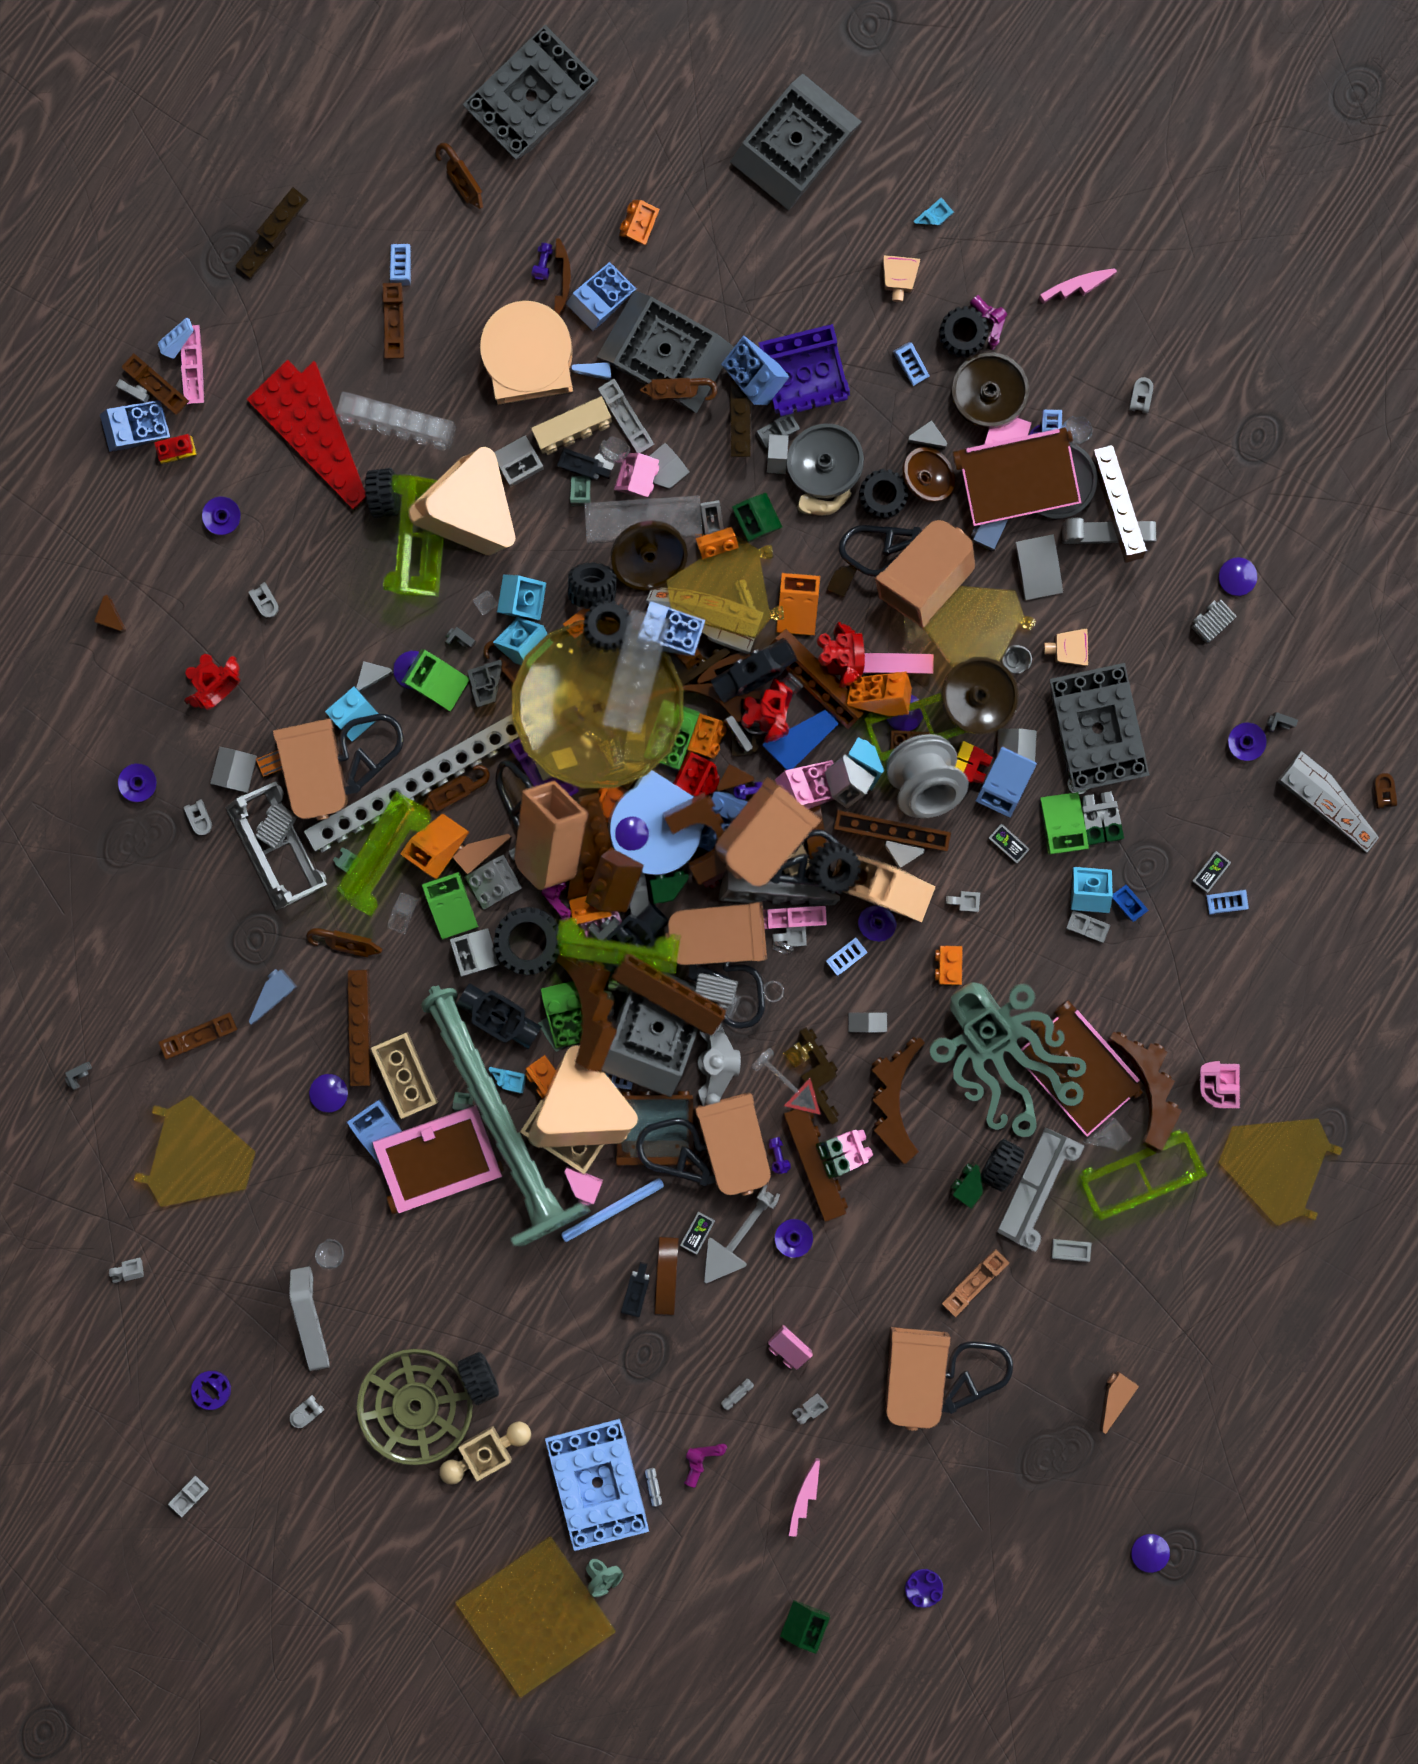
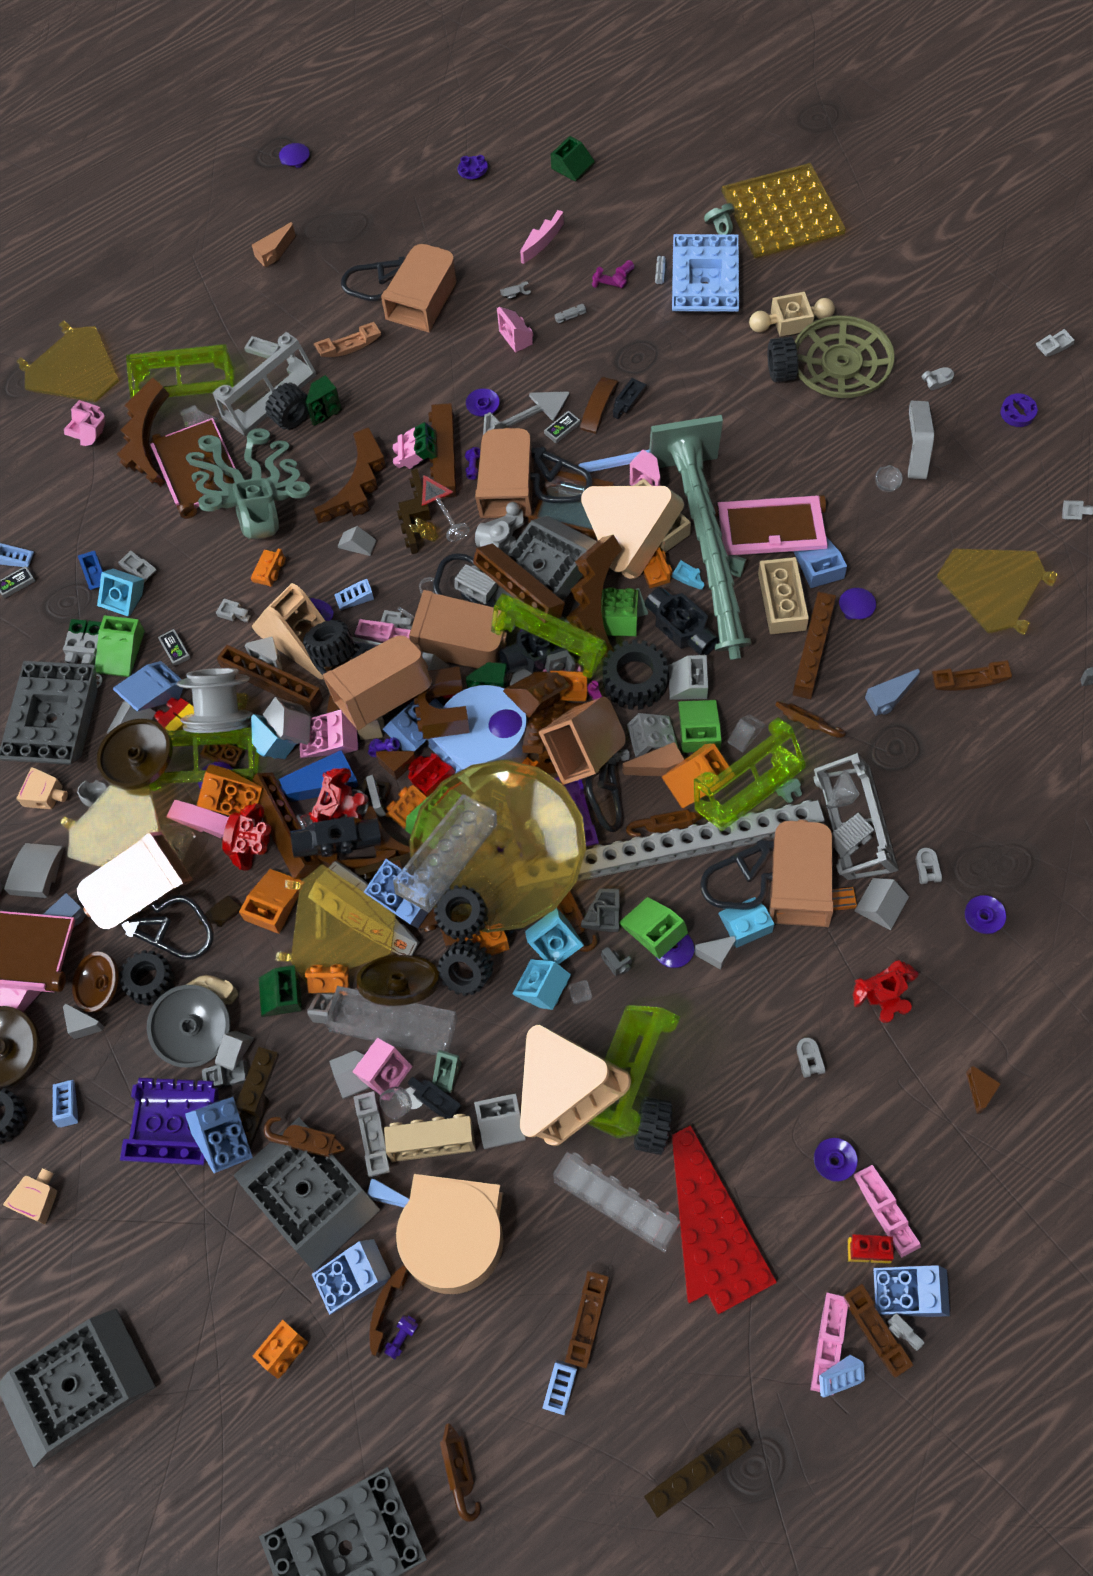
camera: 160 degrees left, 25 degrees down
(169, 486) = (887, 1211): none -> bright pink slope
(295, 870) = (844, 792): none -> clear slope

